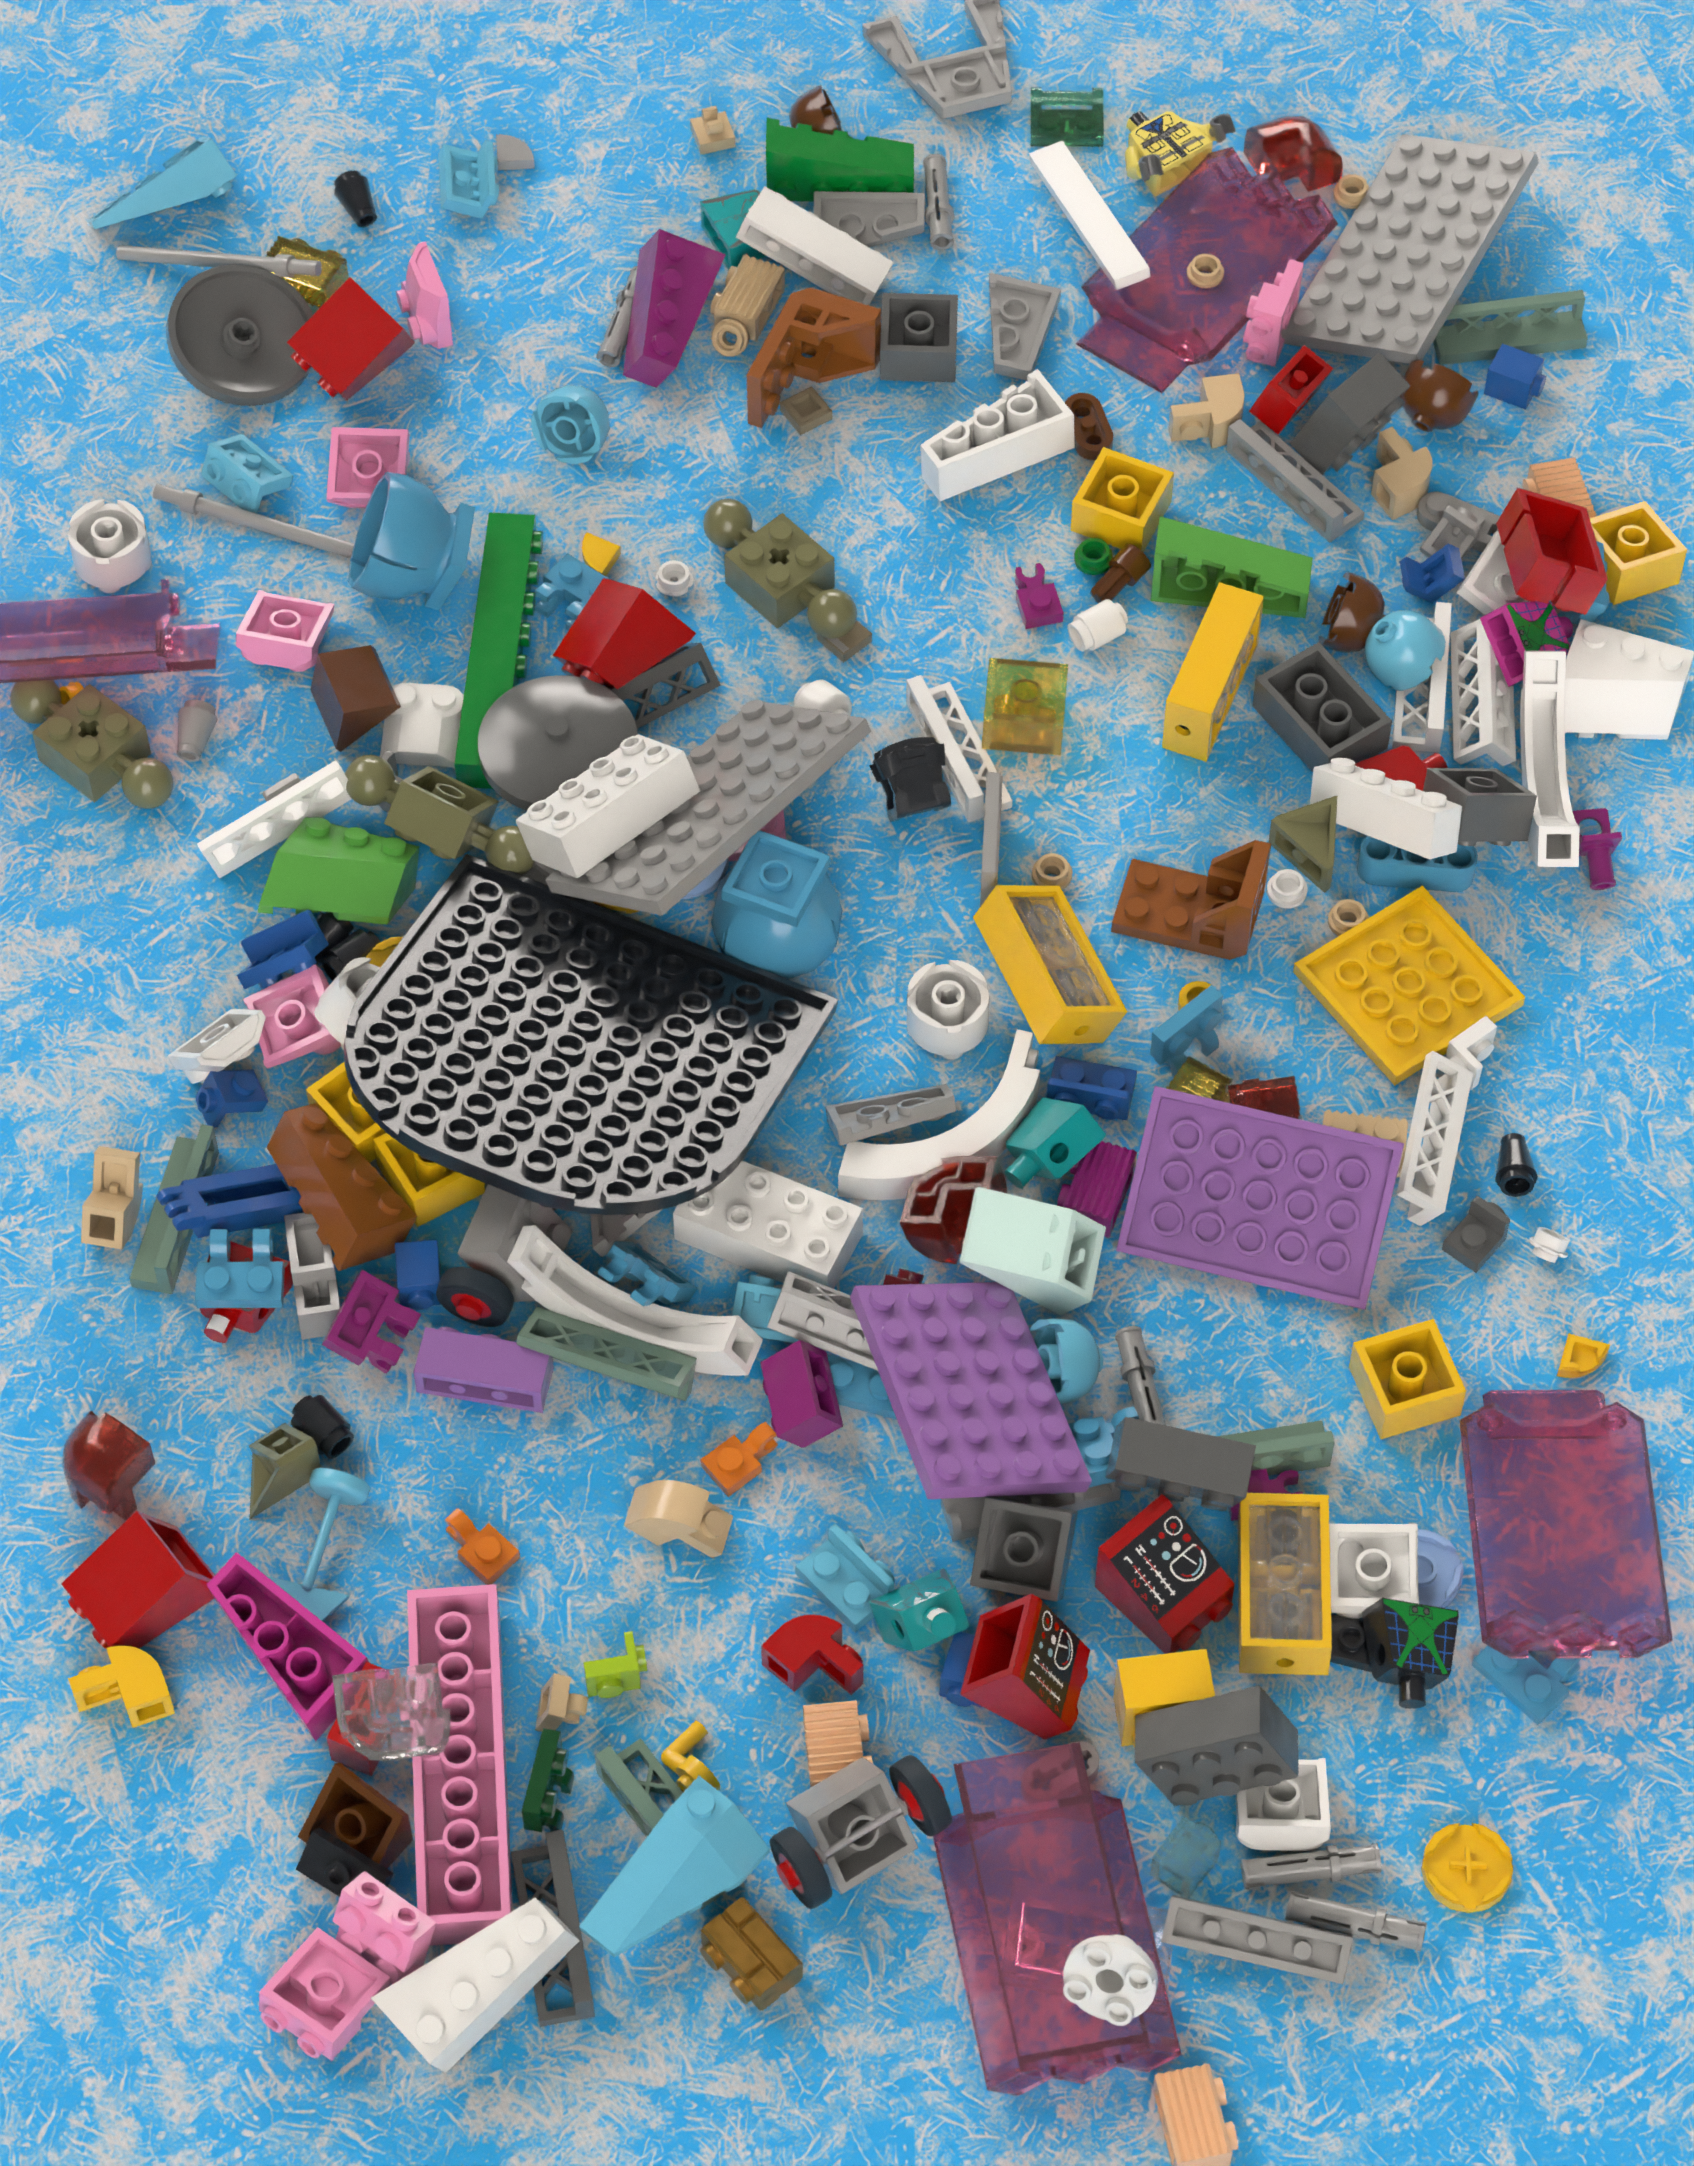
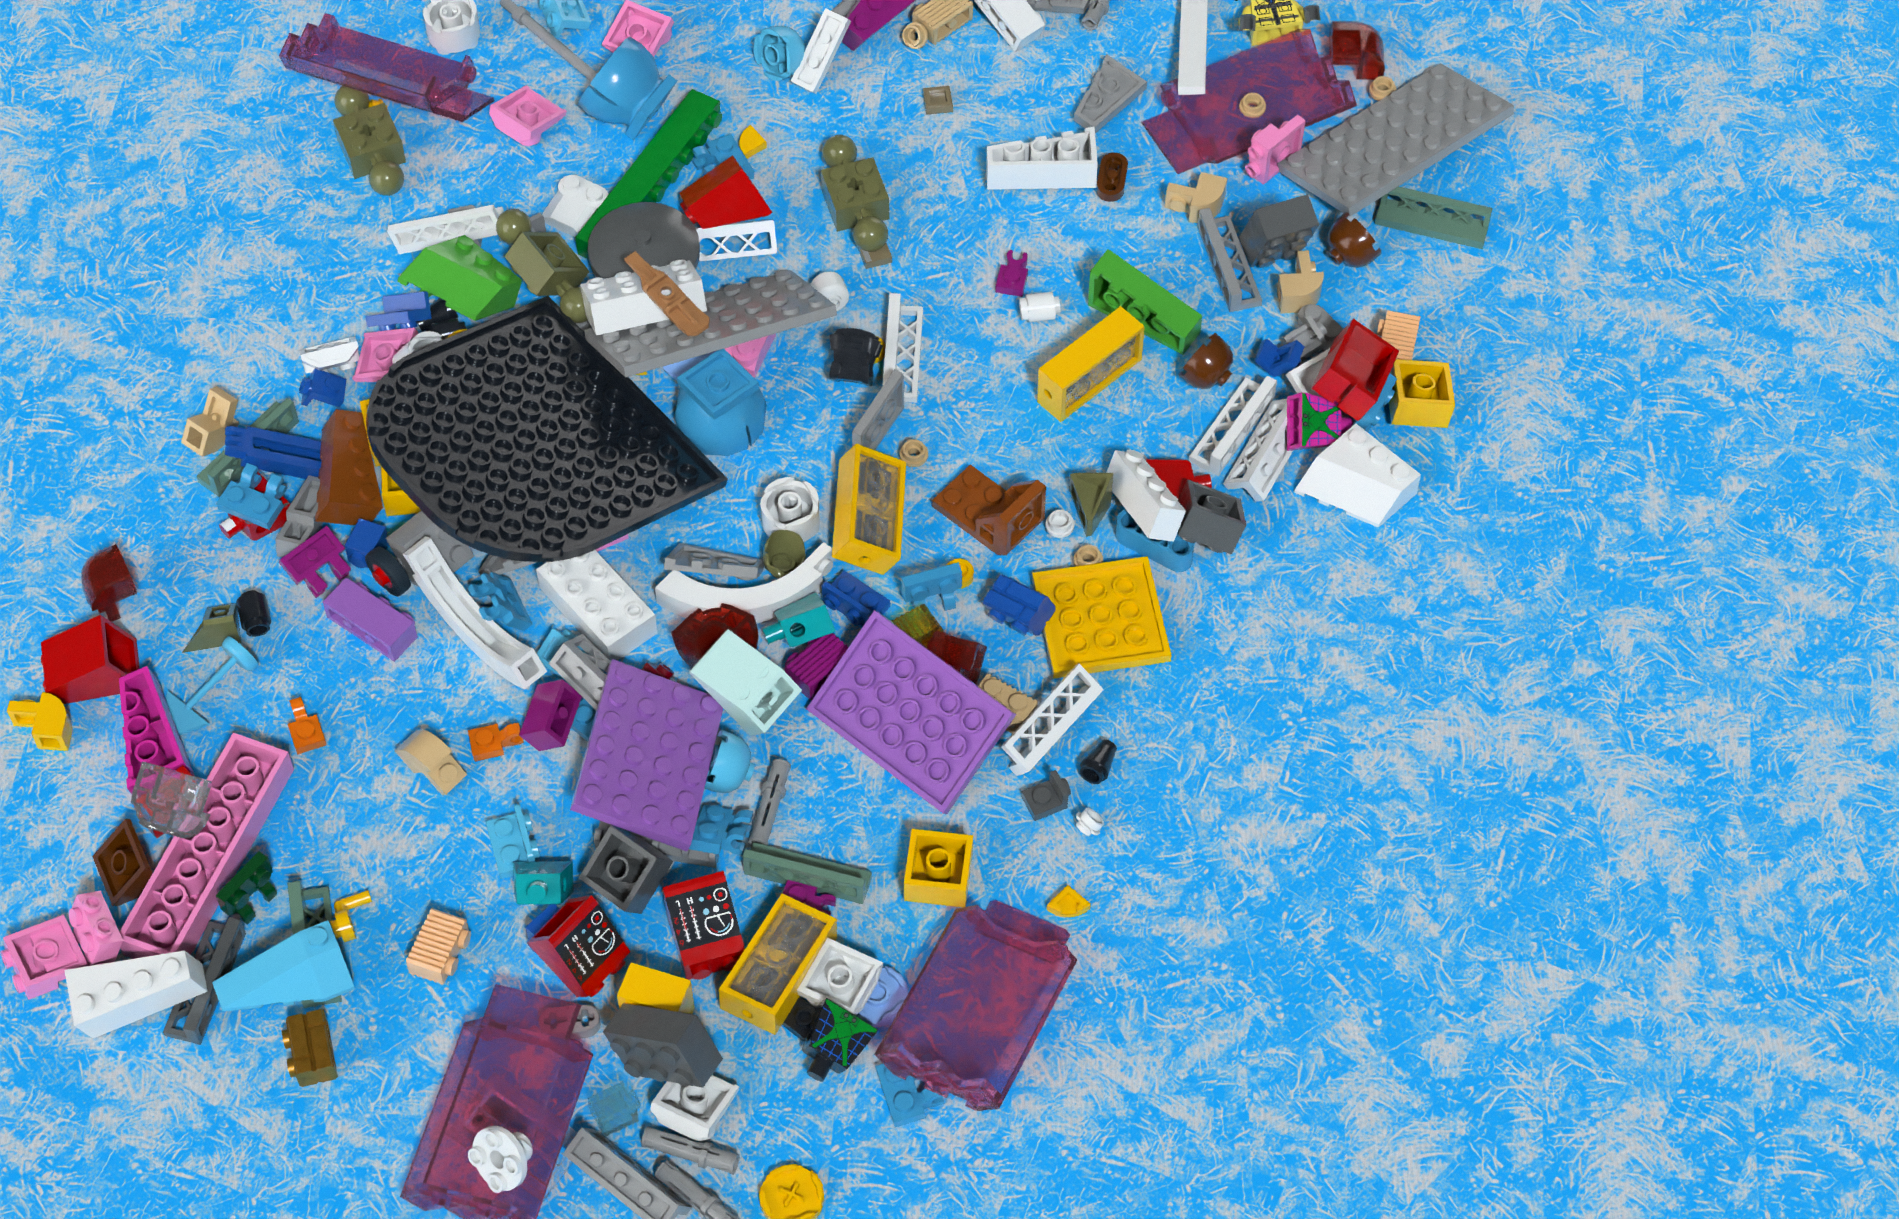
camera: 25 degrees right, 0 degrees up
(195, 726) = (437, 156): light grey cone -> none
(336, 1863) = (98, 877): black plate -> none
(352, 693) = (542, 169): reddish brown slope -> none
(558, 1705) = (290, 844): tan tile -> none
(609, 1353) = (447, 640): sand green fence -> none
(616, 1674) = (335, 840): lime bracket -> none
(628, 401) = (821, 50): none -> white plate
(672, 798) = (675, 306): none -> medium nougat piece
(674, 571) = (787, 174): white plate -> none
(811, 1644) = (461, 873): red brick -> none
(831, 328) = (959, 42): dark orange bracket -> none
(856, 1826) = (412, 996): brick -> none
(918, 337) = (1033, 78): dark grey brick -> none
(973, 1065) = (783, 552): none -> olive hair
(1024, 706) = (956, 339): clear yellow brick -> none
(1095, 549) = (1065, 256): green plate -> none
(1121, 500) = (1100, 227): yellow brick -> none
(1125, 569) = (1078, 278): reddish brown piece -> none
(1180, 1463) = (744, 856): dark grey brick -> none
(1291, 389) = (1246, 200): red brick -> none
(1306, 1011) = (1018, 605): none -> blue brick
(1321, 709) = (1148, 415): dark grey brick -> none
(1403, 649) = (1226, 396): medium azure cylinder -> none
(1473, 1047) = (1115, 672): white bracket -> none
(1515, 376) = (1416, 249): blue brick -> none
(1543, 760) = (1261, 542): white arch -> none
(1598, 848) = (1280, 578): magenta bracket -> none

